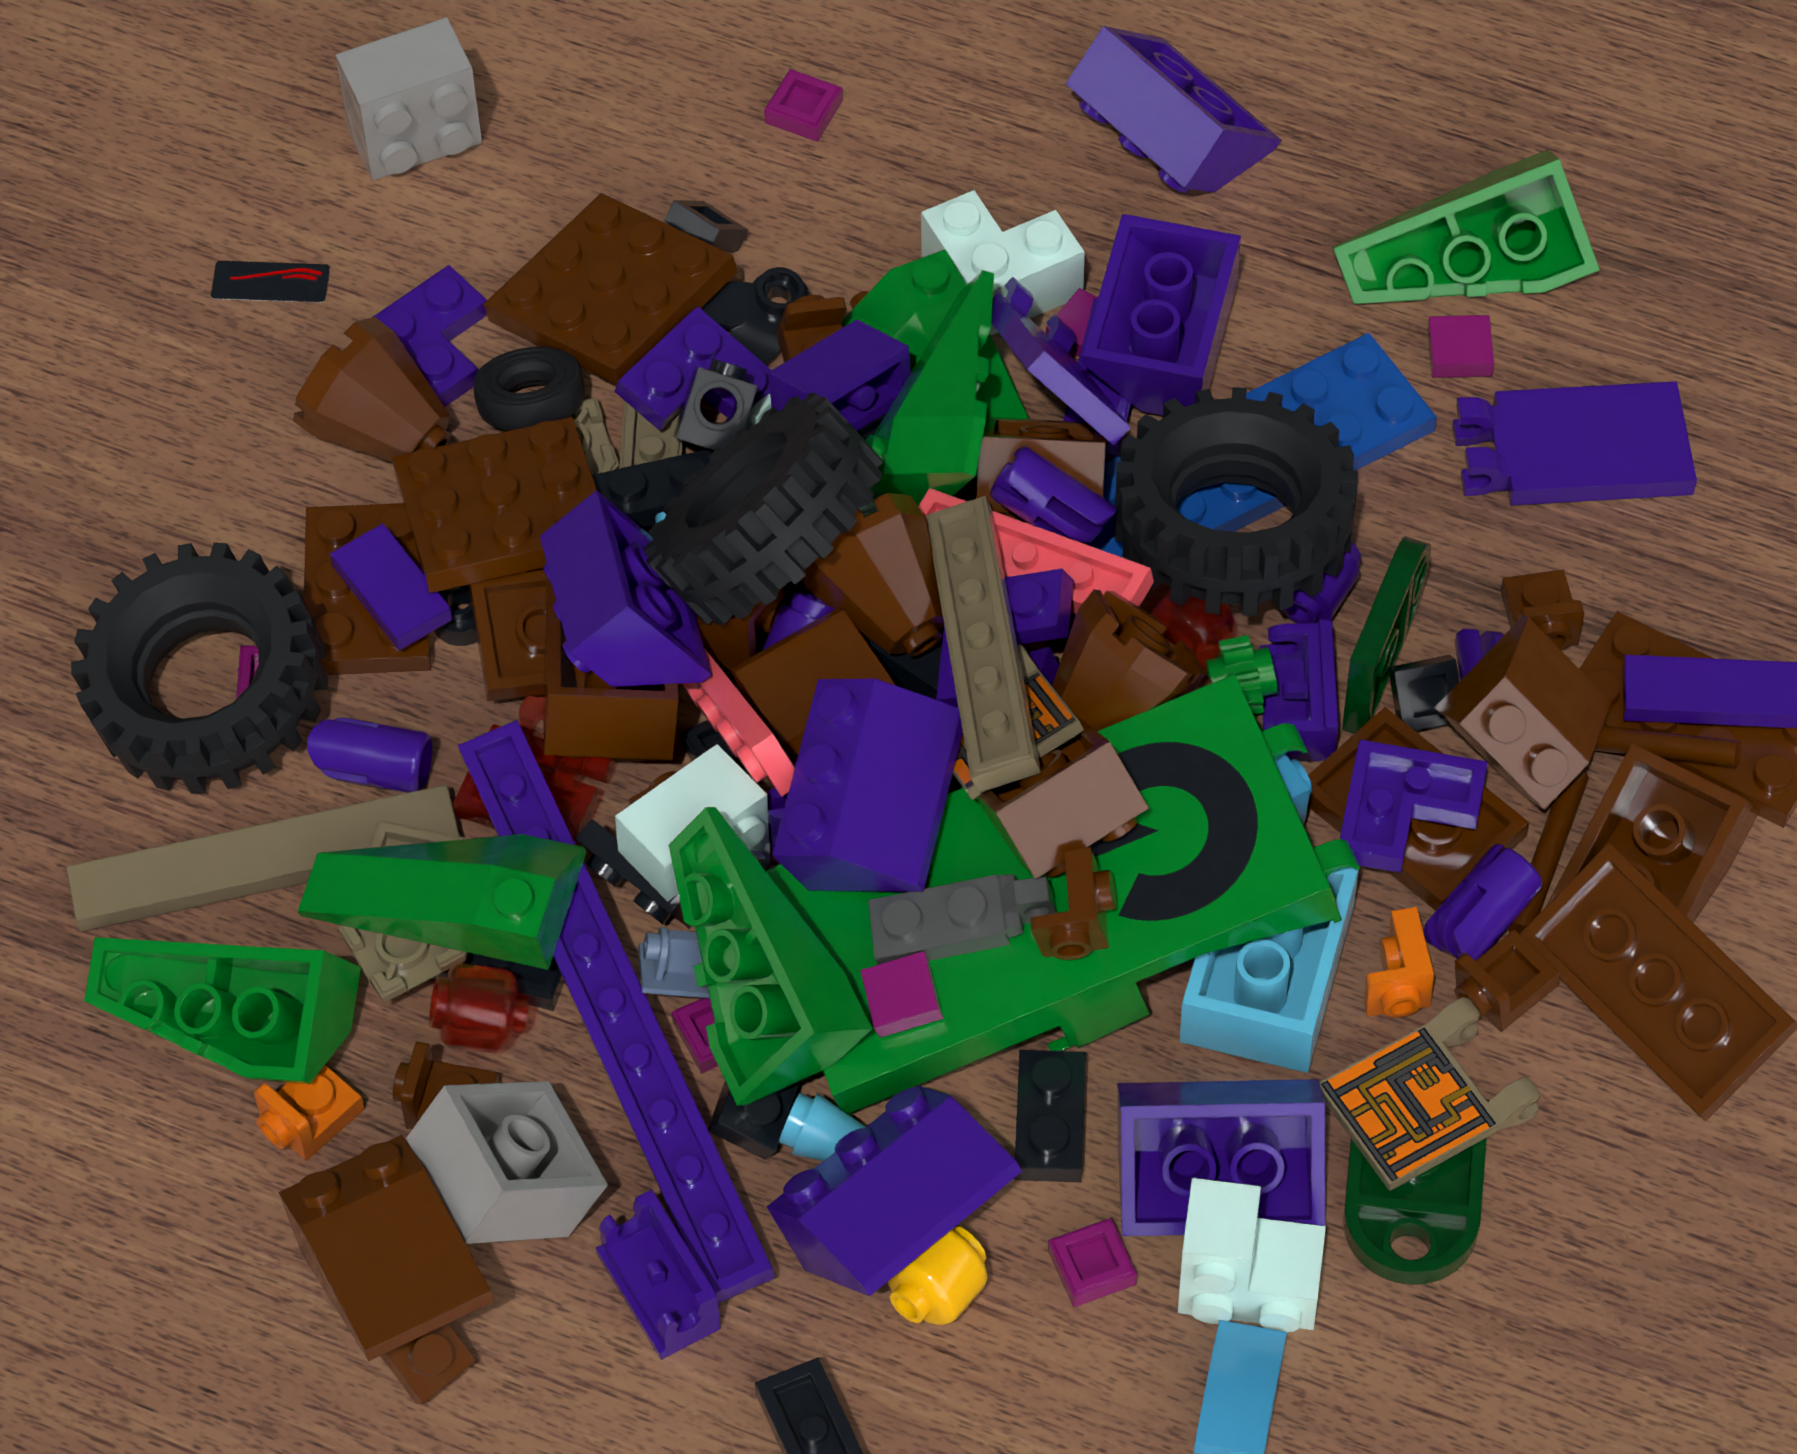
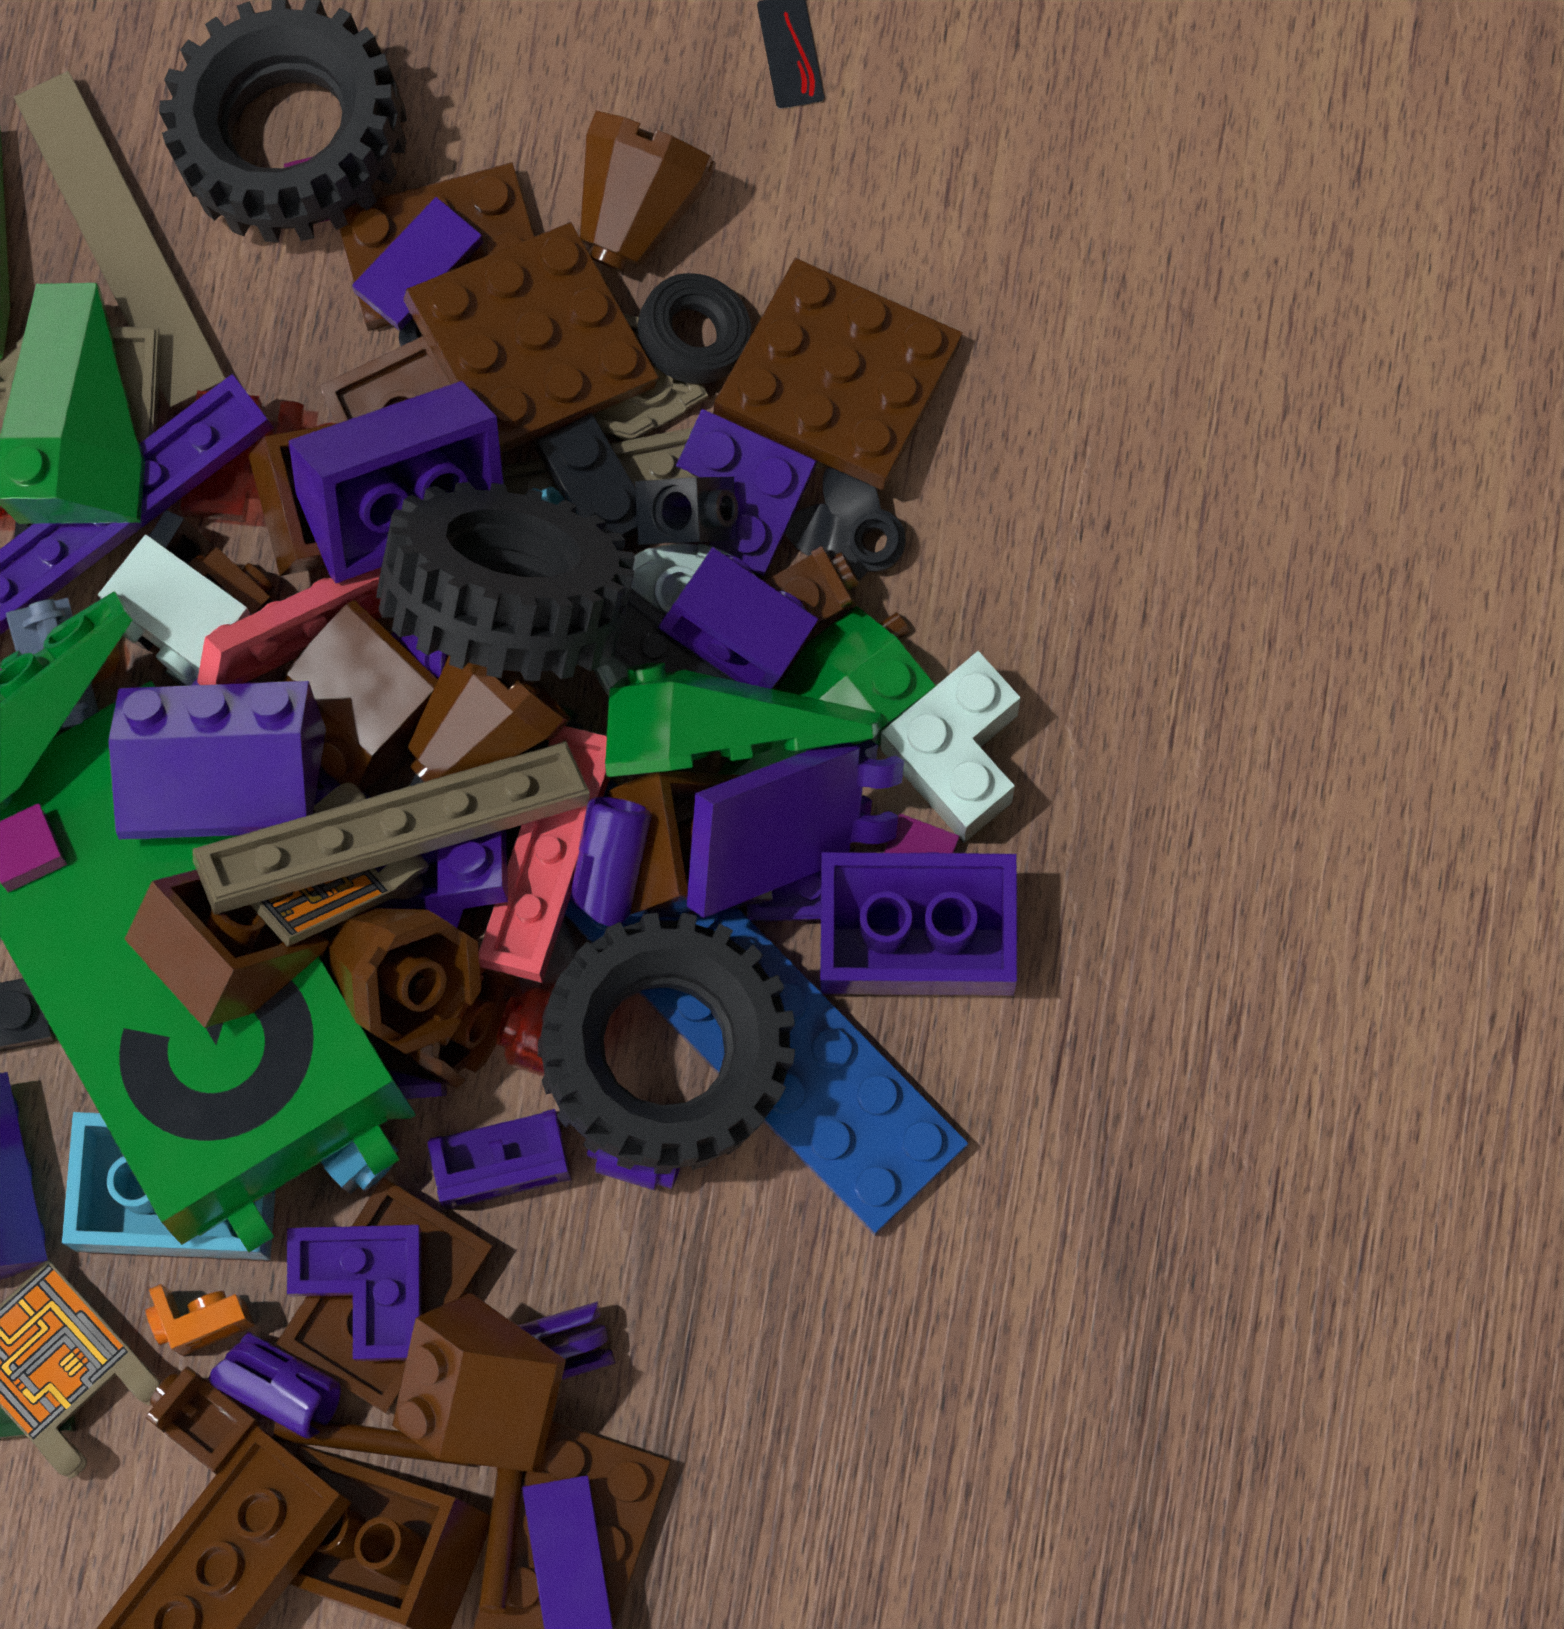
camera: 80 degrees right, 20 degrees up
(371, 754) = (239, 302): dark purple arm -> none
(409, 98) = (1008, 112): light grey brick -> none
(427, 323) = (747, 201): dark purple plate -> none
(706, 224) = (941, 445): black plate -> none
(803, 105) = (1137, 503): magenta tile -> none
(957, 916) = (101, 875): dark grey hinge -> none
(1084, 926) = (108, 995): reddish brown bracket -> none
(1169, 110) = (1213, 880): dark purple slope -> none
(1252, 668) = (496, 1096): green gear -> none
(1385, 632) = (570, 1228): dark green tile -> none
(1420, 687) = (522, 1283): black plate -> none
(1460, 346) = (980, 1242): magenta tile -> none
(1483, 238) = (1130, 1248): green wedge -> none
(1547, 603) = (657, 1384): reddish brown bracket -> none
(1577, 443) = (882, 1391): dark purple tile -> none

